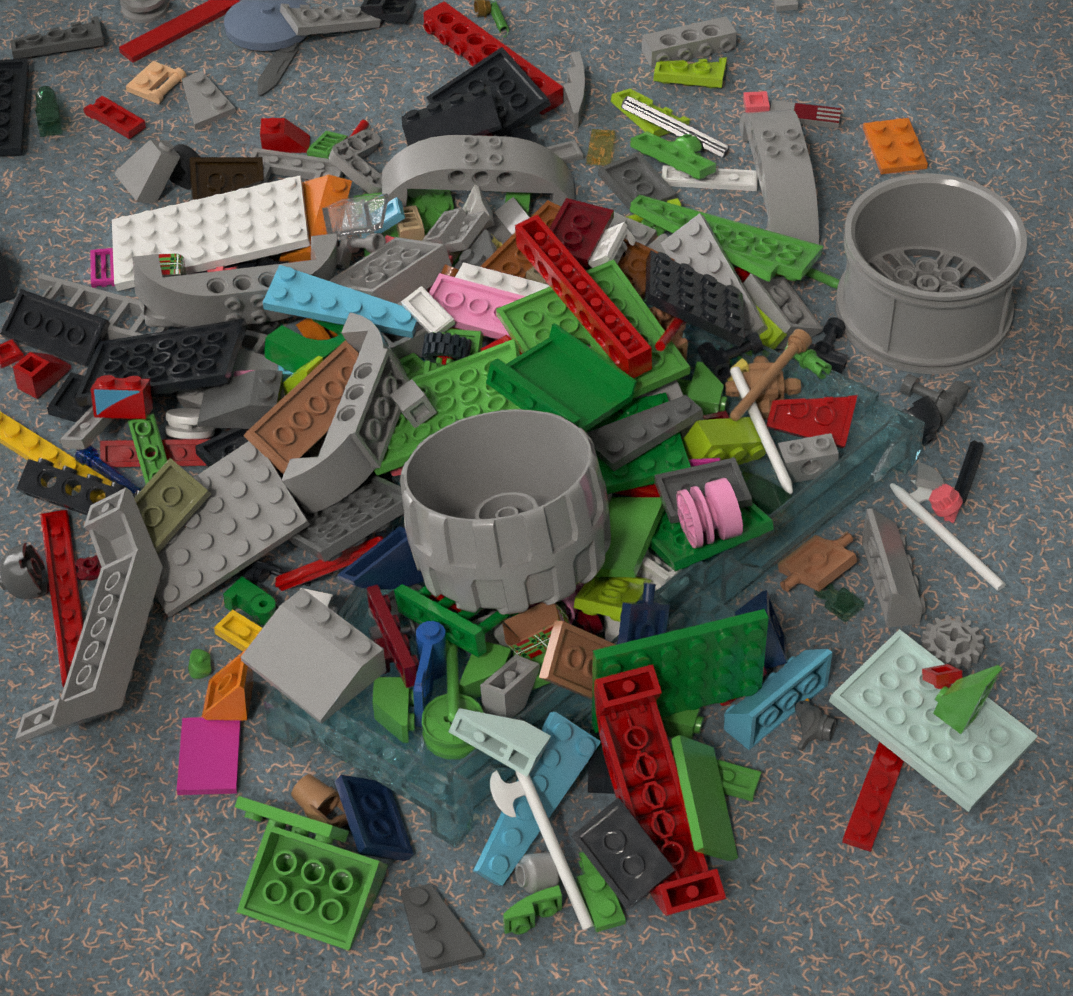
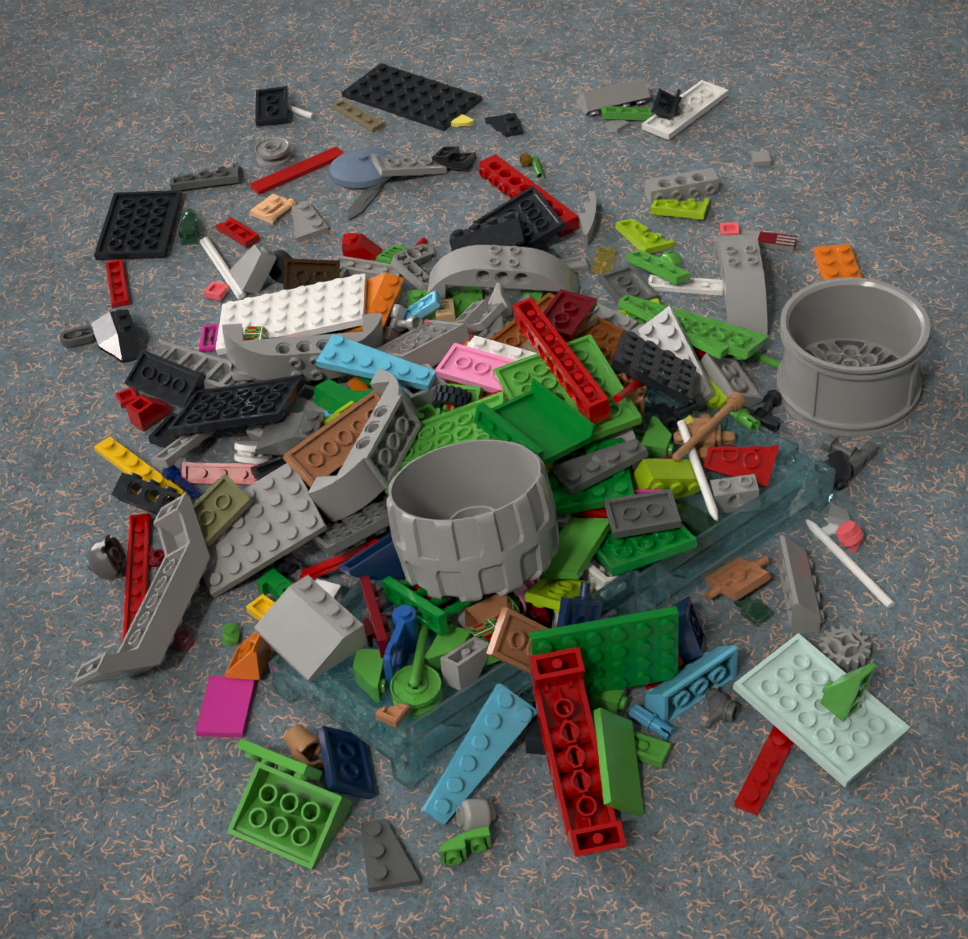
camera: 10 degrees right, 5 degrees down
(100, 201) = (216, 291): none -> coral plate
(102, 167) = (222, 267): none -> white axle
(121, 397) = (200, 429): red brick -> none
(141, 667) = (182, 635): none -> clear pink plate
(147, 440) = (217, 461): bright green tile -> none
(356, 216) = (401, 302): clear slope -> none
(413, 403) = (418, 438): light grey brick -> none
(428, 311) = (441, 370): white tile -> none
(431, 758) = (393, 715): none -> nougat tile
(502, 738) = (453, 702): light aqua slope -> none
(504, 795) = (449, 749): white piece -> none
(599, 897) = (523, 837): bright green plate -> none
(611, 245) = (593, 324): white hinge -> none
(623, 853) = (545, 803): black plate -> none
(673, 125) = (661, 245): axle -> none
(715, 511) = (642, 529): bright pink wheel -> none
(734, 746) = (651, 721): none -> dark azure axle
(941, 675) = (829, 672): red plate -> none
(969, 469) = (872, 511): black axle -> none

